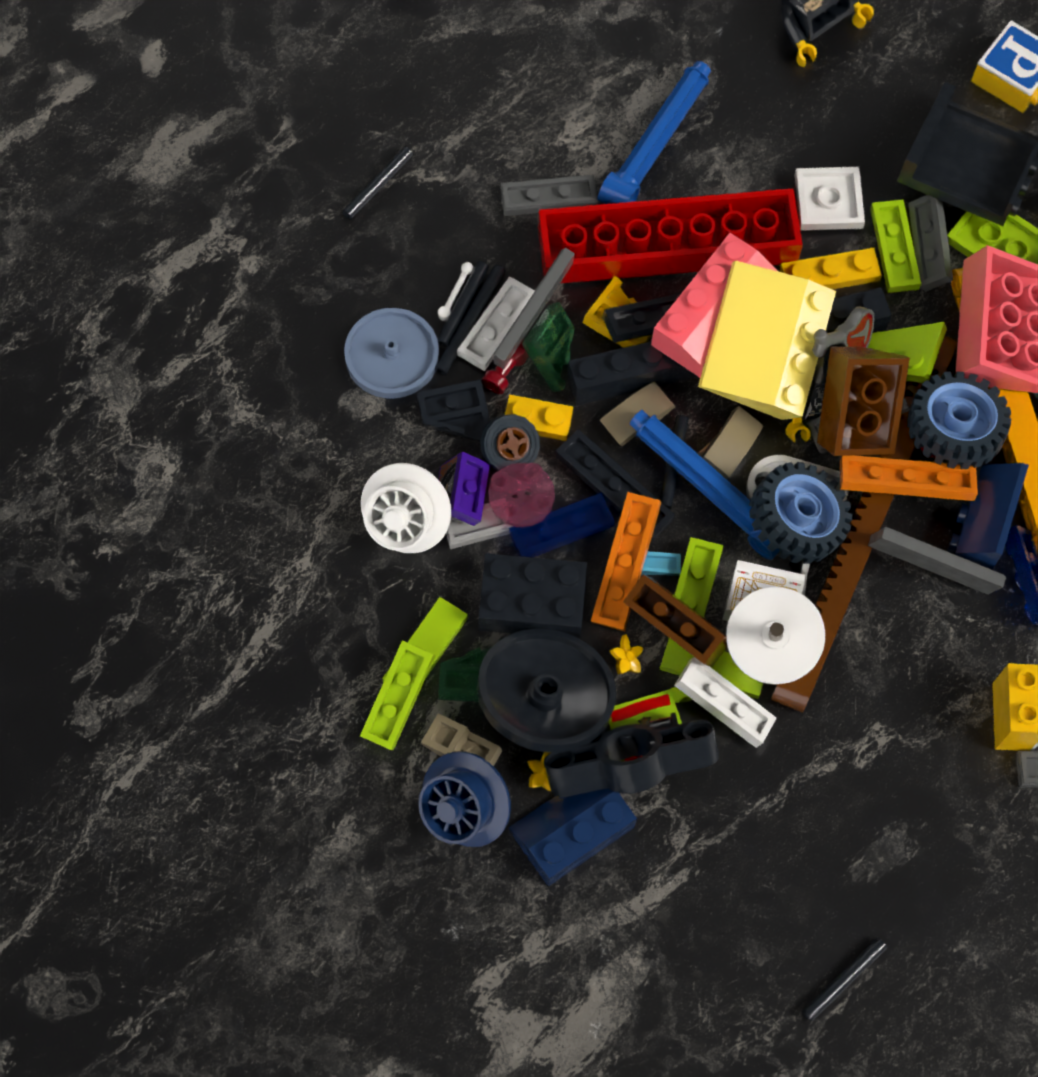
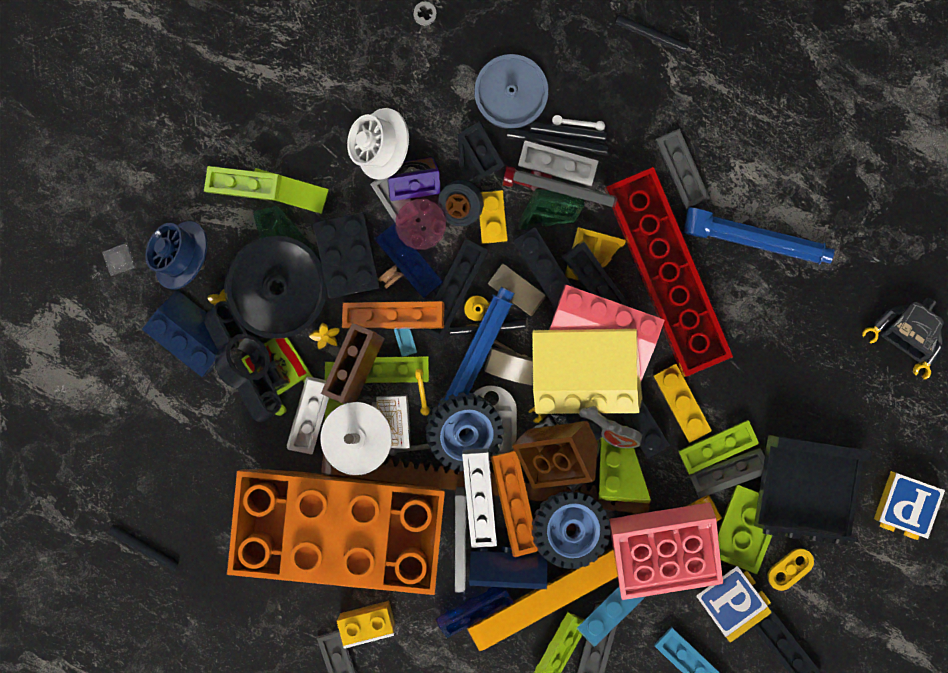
camera: 75 degrees right, 20 degrees up
(252, 417) = (428, 6): none -> light grey bush
(444, 892) = (119, 259): none -> clear plate
(450, 736) = (224, 238): dark tan slope -> none
(575, 551) = (391, 276): none -> medium nougat bush
(645, 467) = (470, 307): none -> yellow tile
(715, 550) = (425, 410): none -> yellow hinge
(829, 198) = (744, 386): white plate -> none
(876, 512) = (479, 497): none -> plate
(891, 697) = (335, 530): none -> orange brick

